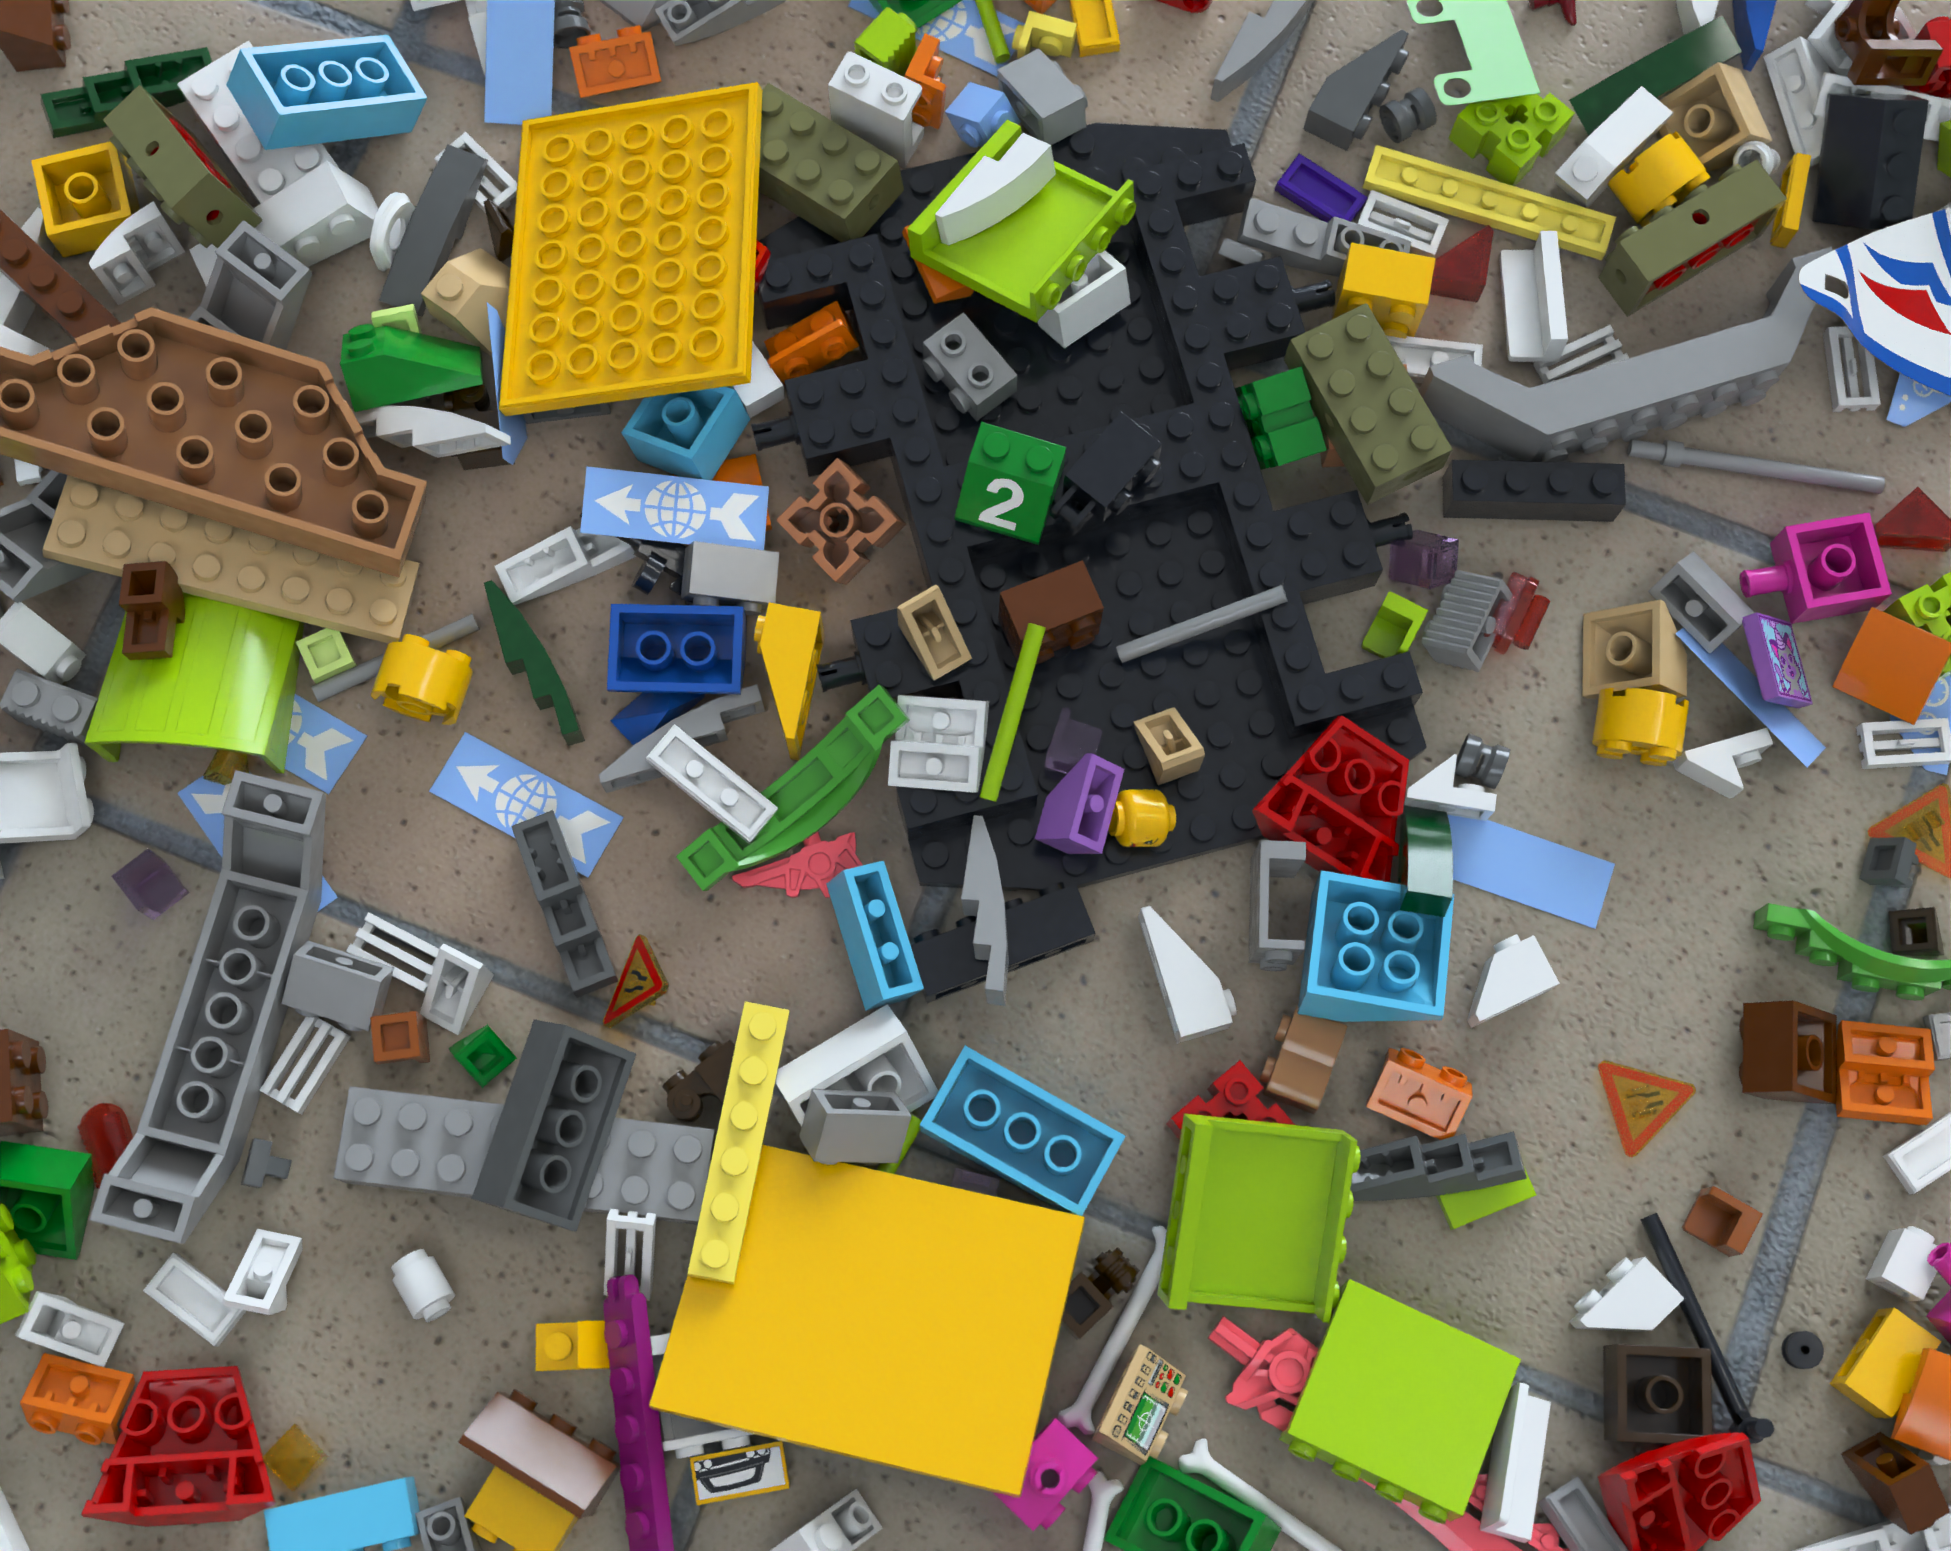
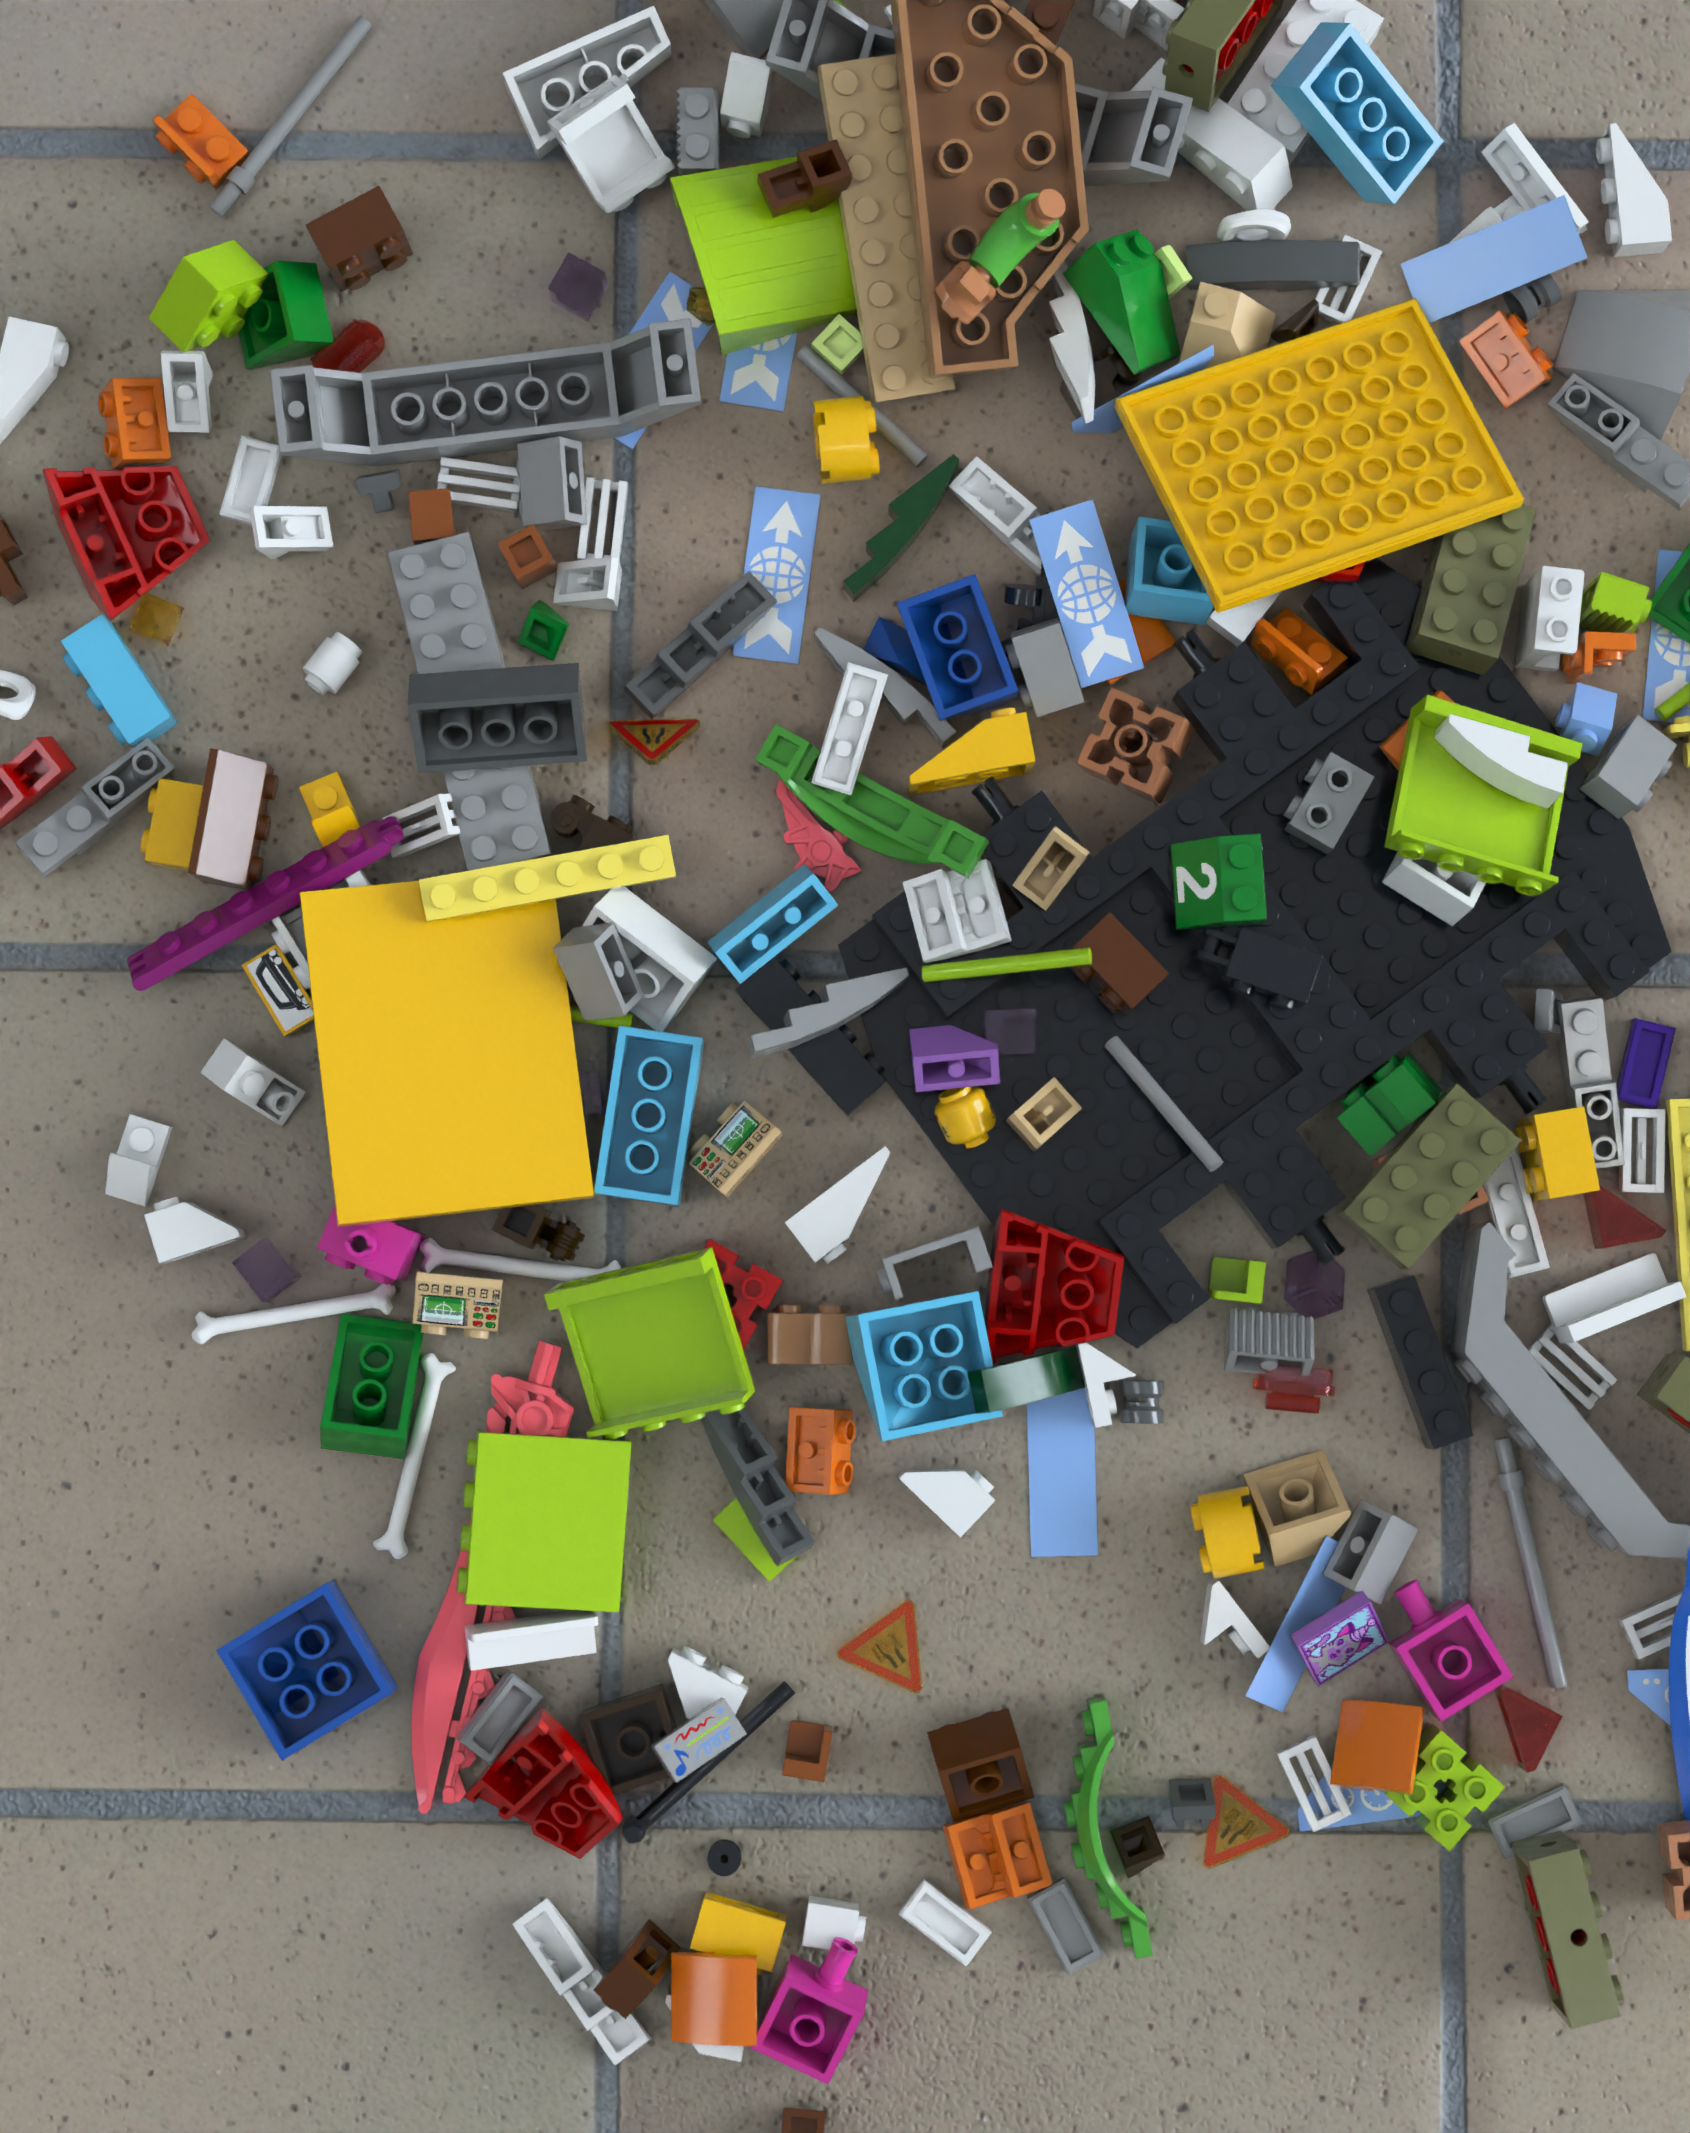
camera: 70 degrees right, 10 degrees up
(298, 428) = (1003, 246): none -> piece
(314, 1121) = (431, 515): none -> dark orange panel
(1086, 1058) = (734, 1148): none -> tan slope
(1683, 1323) = (698, 1740): none -> light grey tile

